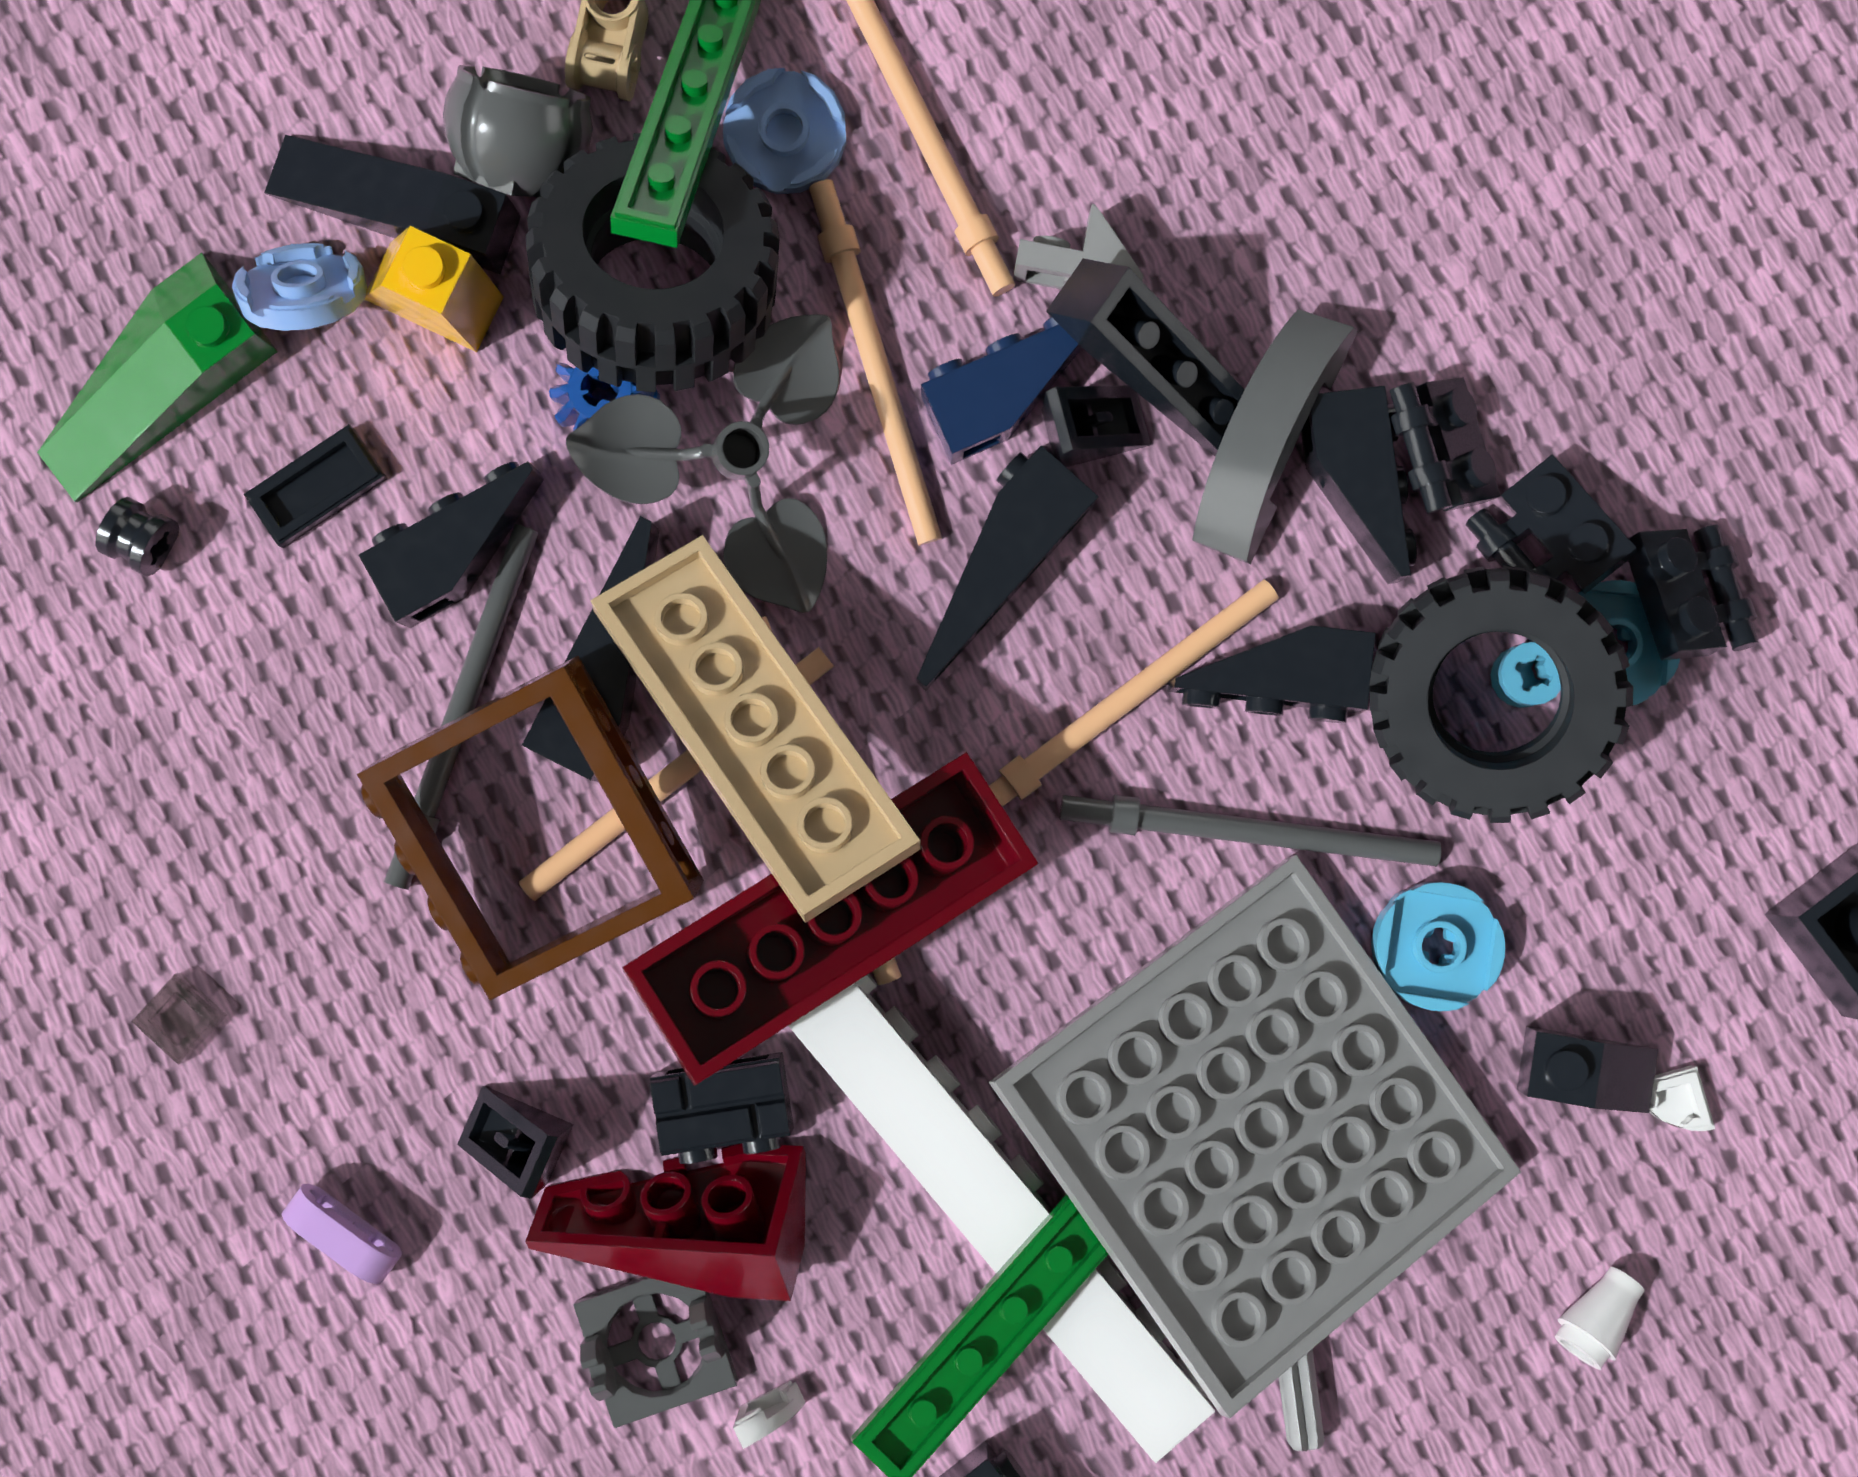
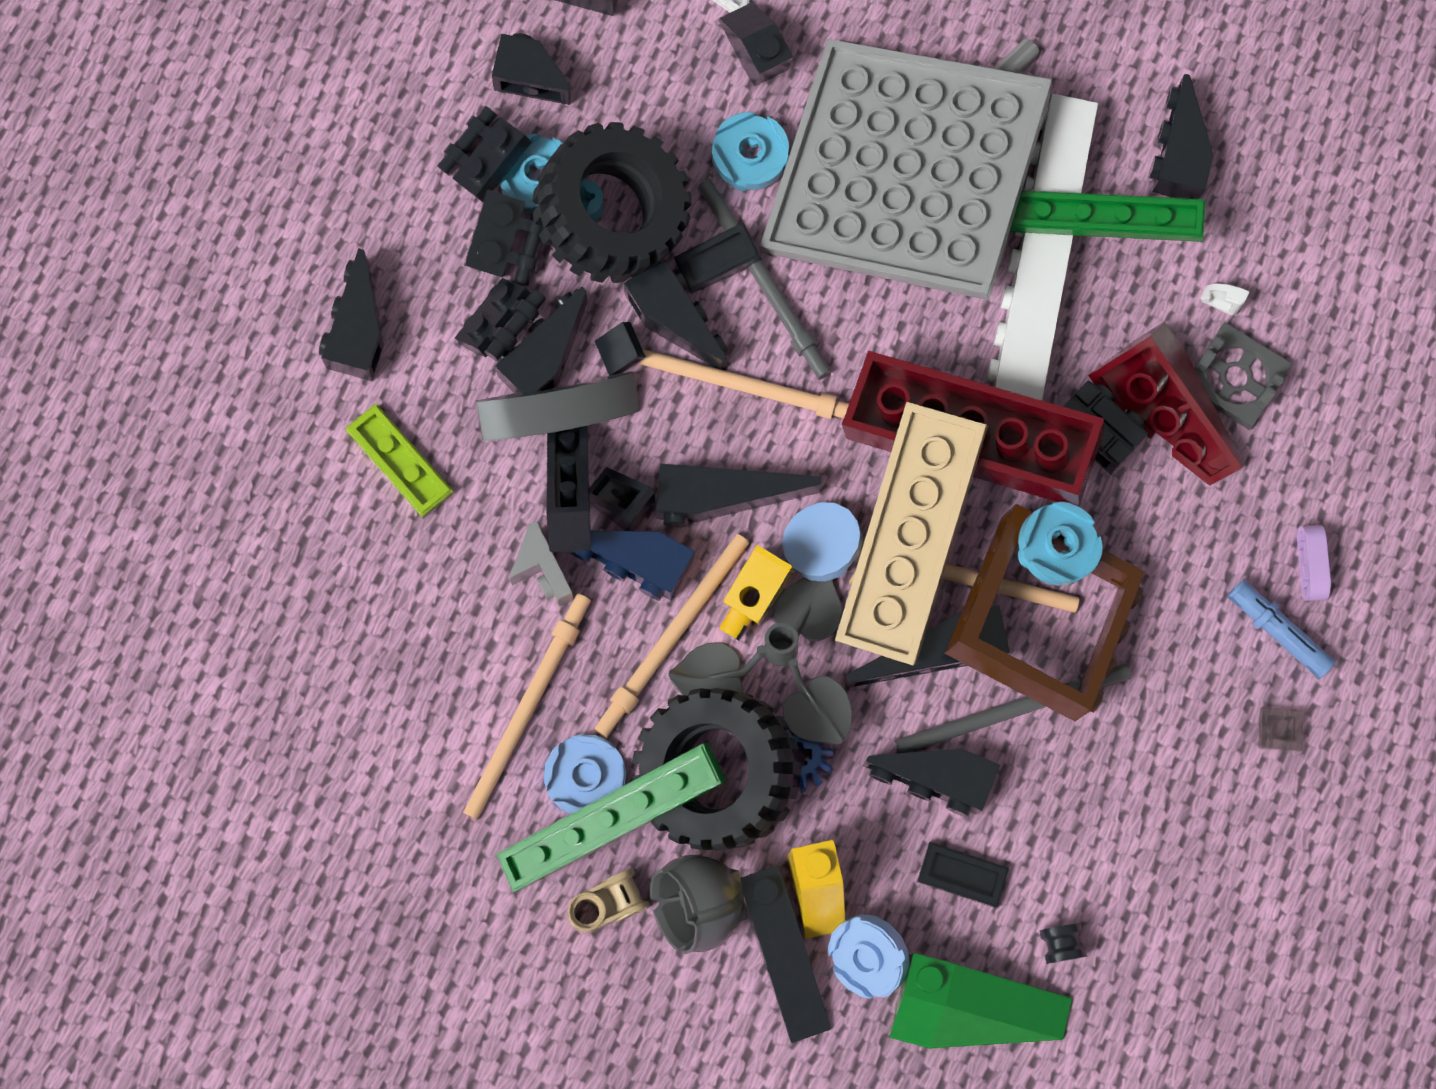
camera: 130 degrees left, 10 degrees down
(320, 1119) = (1285, 632): none -> medium blue pin
(514, 1141) = (1200, 512): black slope -> none
(610, 872) = (1038, 552): none -> medium azure plate
(846, 496) = (762, 573): none -> yellow torso
(846, 630) = (822, 541): none -> light blue tile
(1292, 571) = (620, 348): none -> black tile
(1321, 790) = (718, 258): none -> black tile
(1352, 195) = (399, 460): none -> lime tile
(1566, 260) = (356, 333): none -> black slope
(1771, 736) = (528, 70): none -> black slope

